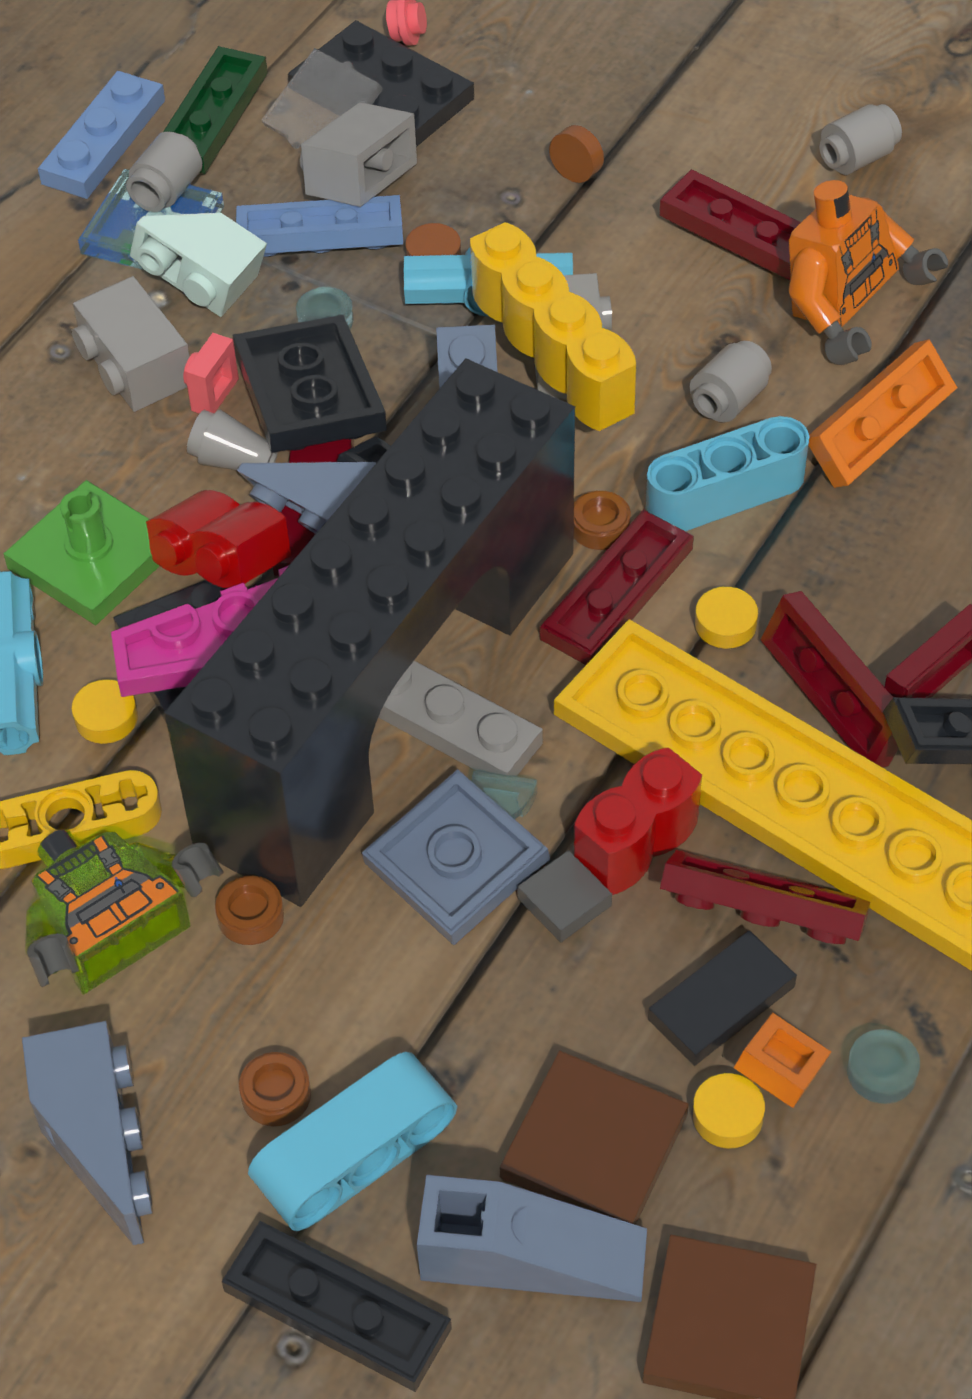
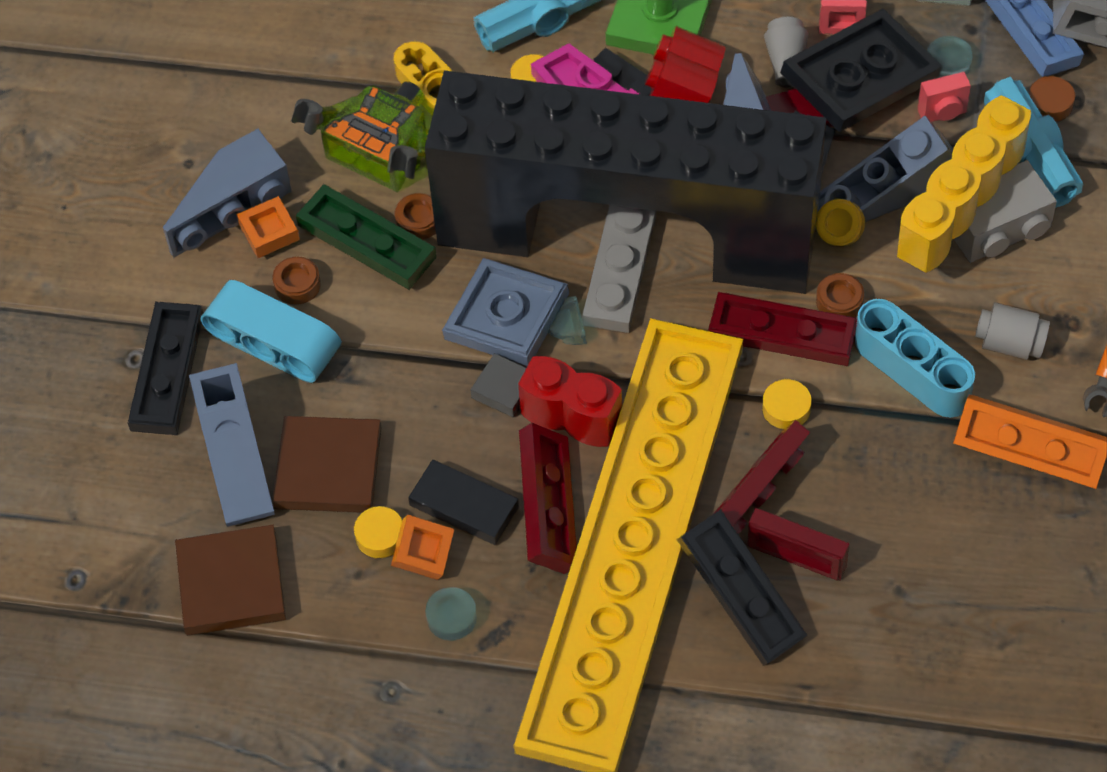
camera: 70 degrees right, 5 degrees up
(174, 1092) = (268, 227): none -> orange plate
(255, 976) = (366, 236): none -> dark green plate
(388, 329) = (944, 97): none -> coral plate

